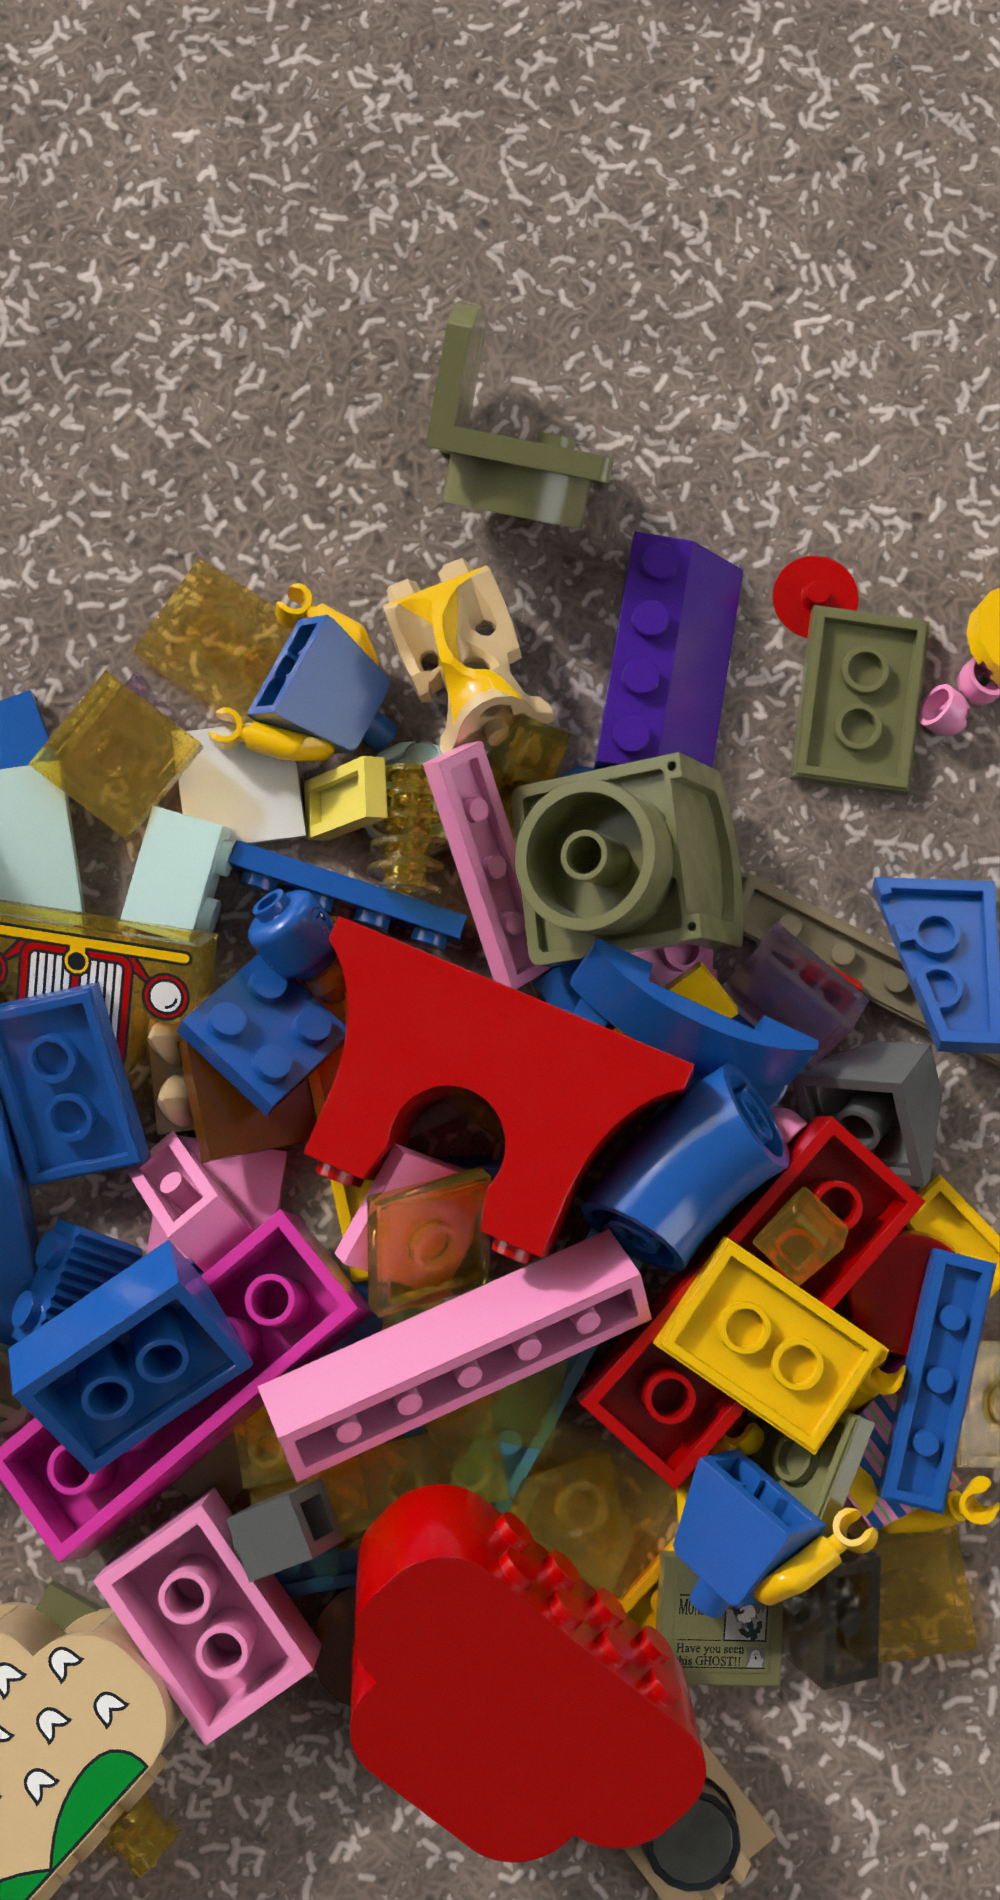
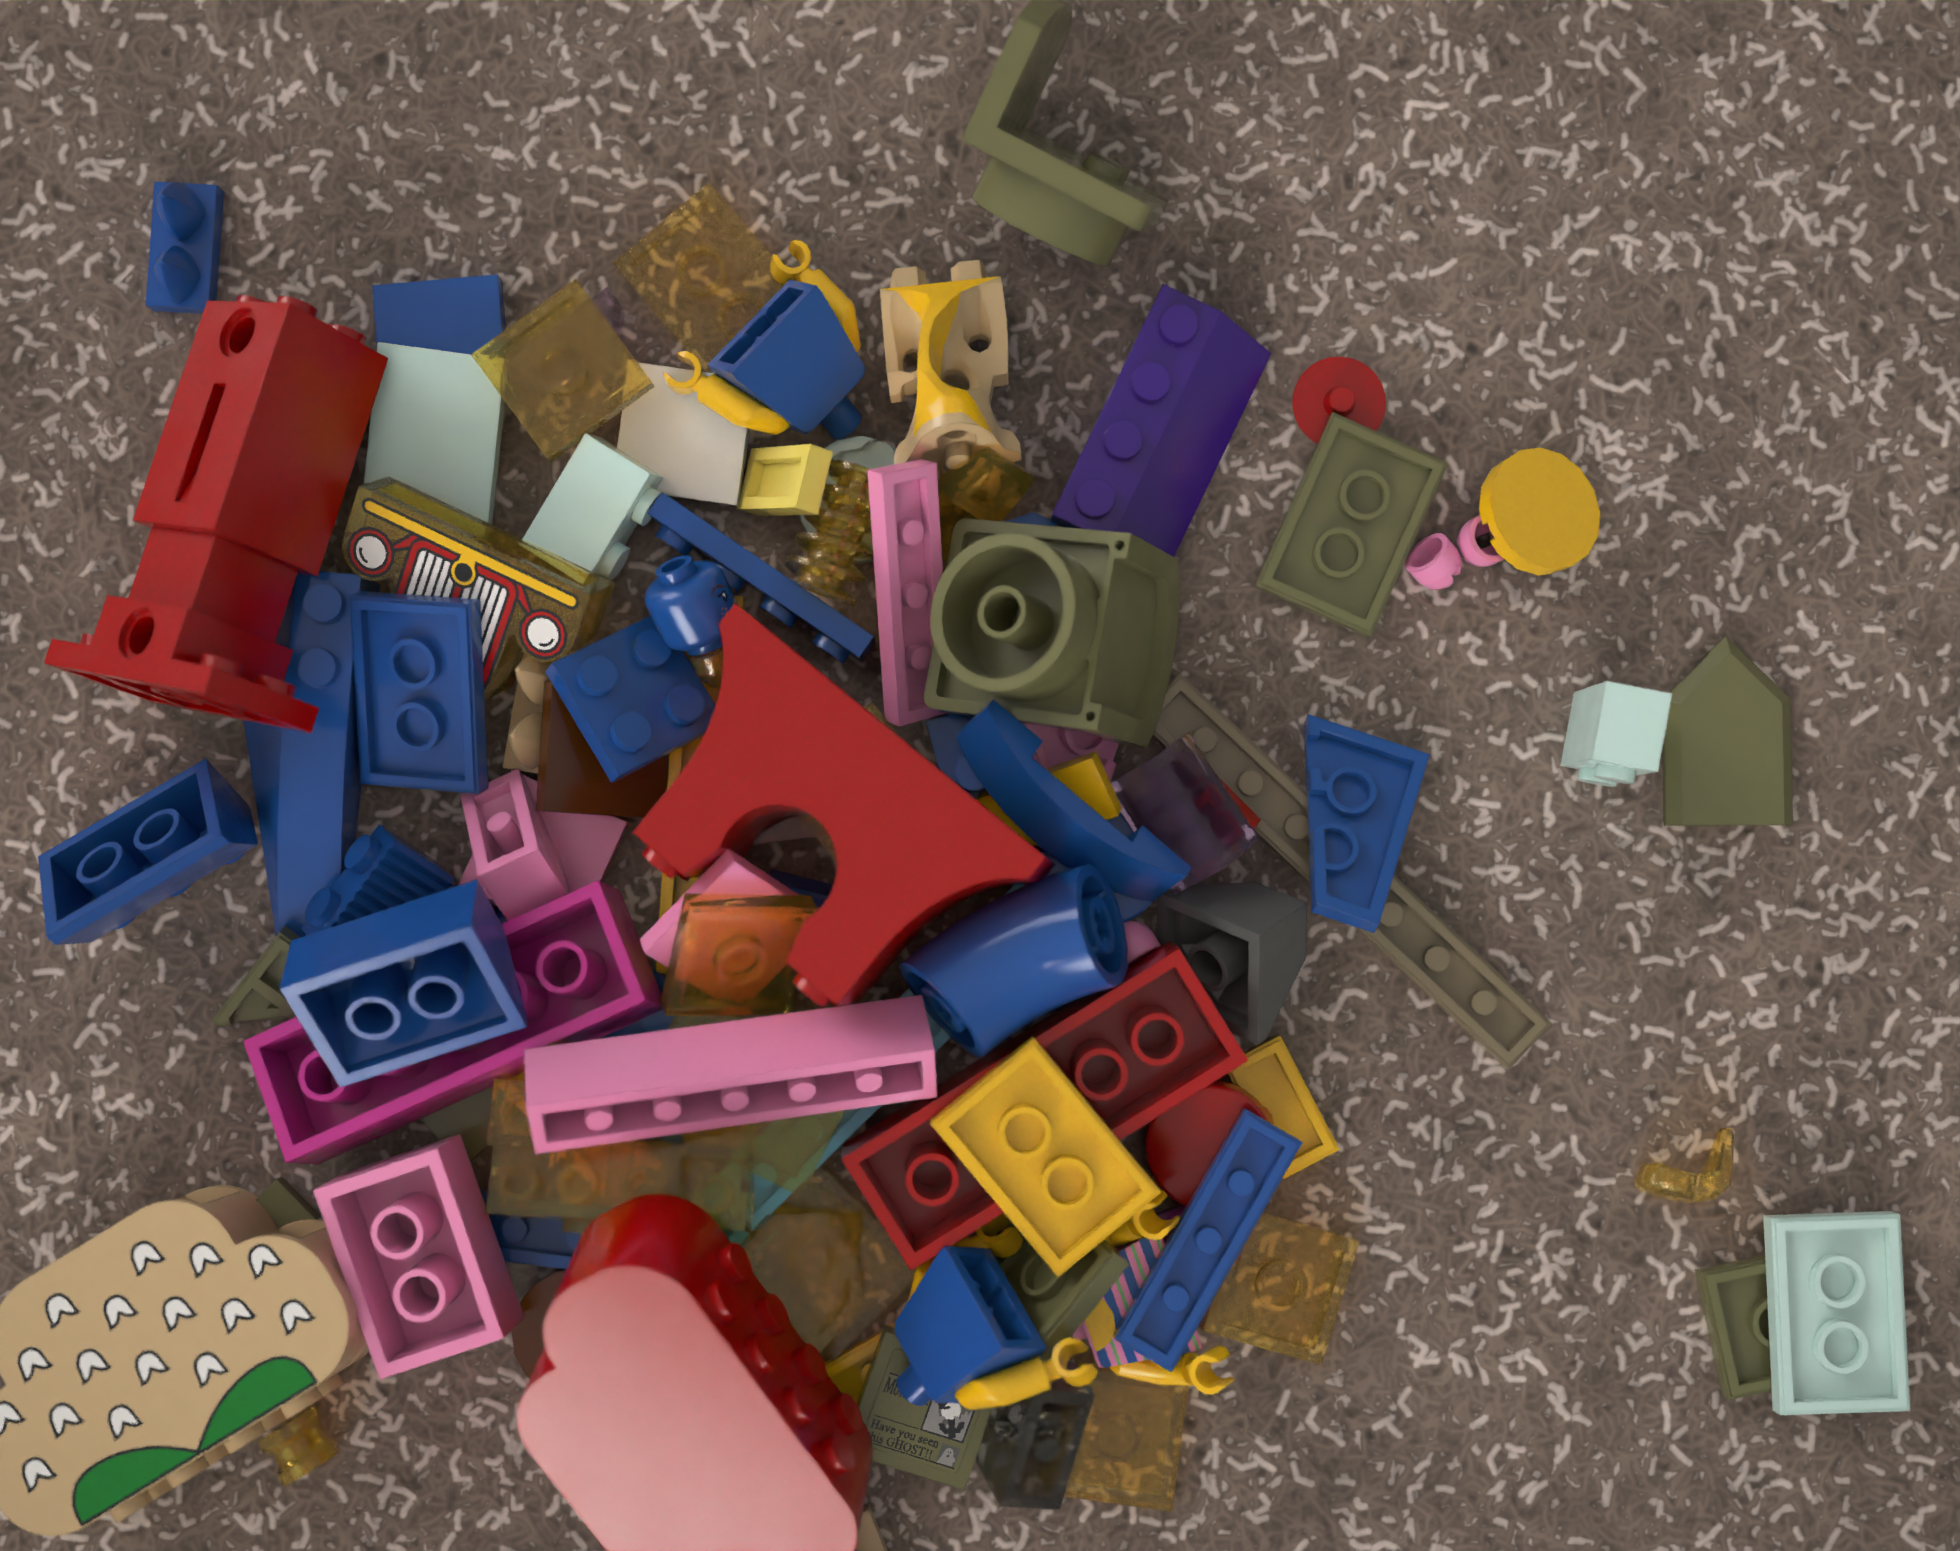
camera: 25 degrees right, 5 degrees up
(285, 1530) = (513, 1196): dark grey brick -> none
(802, 1236) = (1111, 1058): clear yellow slope -> none

